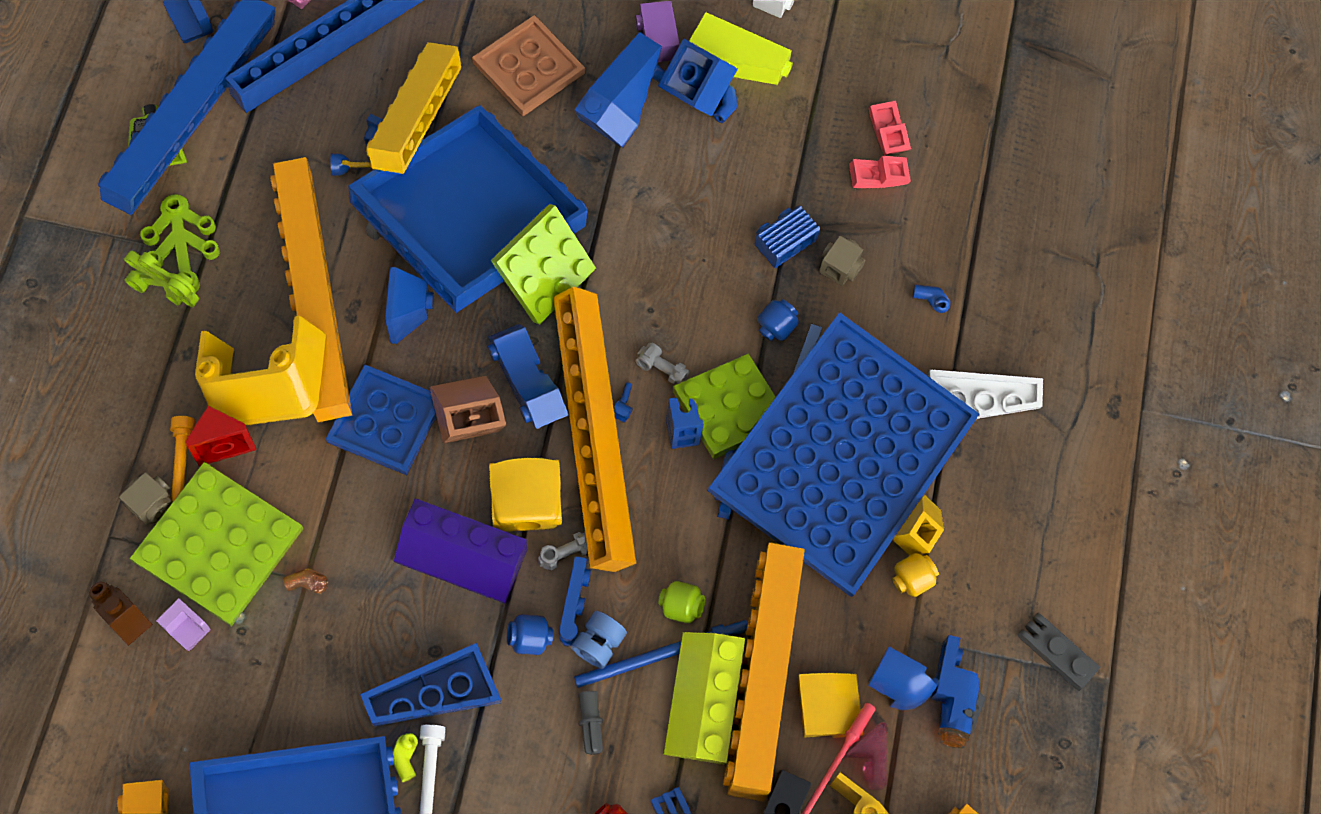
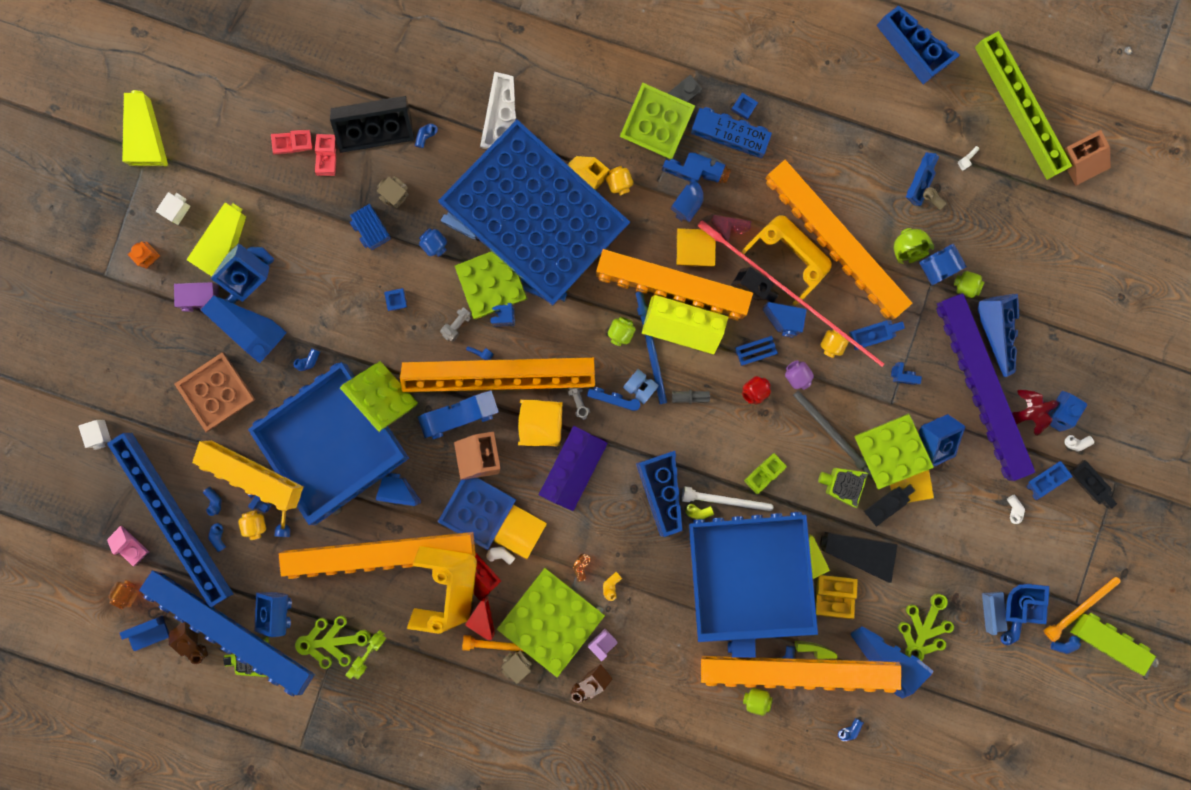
camera: 75 degrees left, 20 degrees up
(172, 56) = (185, 643): none -> reddish brown brick
(218, 160) = (272, 613): none -> blue brick
(277, 627) = (609, 586): none -> yellow arm
(283, 437) = (485, 579): none -> red panel
(322, 460) = (500, 553): none -> white arm
(325, 83) = (215, 537): none -> blue arm
(345, 124) = (252, 525): none -> yellow head
(356, 484) = (520, 532): none -> yellow slope
(377, 79) = (215, 501): none -> blue arm
(529, 634) = (632, 429): blue head -> none
(582, 176) = (307, 363): none -> blue arm
(687, 279) = (395, 299): none -> blue plate
(934, 226) = (372, 124): none -> black slope
(1017, 622) = (657, 121): none -> lime plate
(1022, 741) = (730, 132): none -> blue brick
(1068, 758) = (744, 106): none -> blue plate

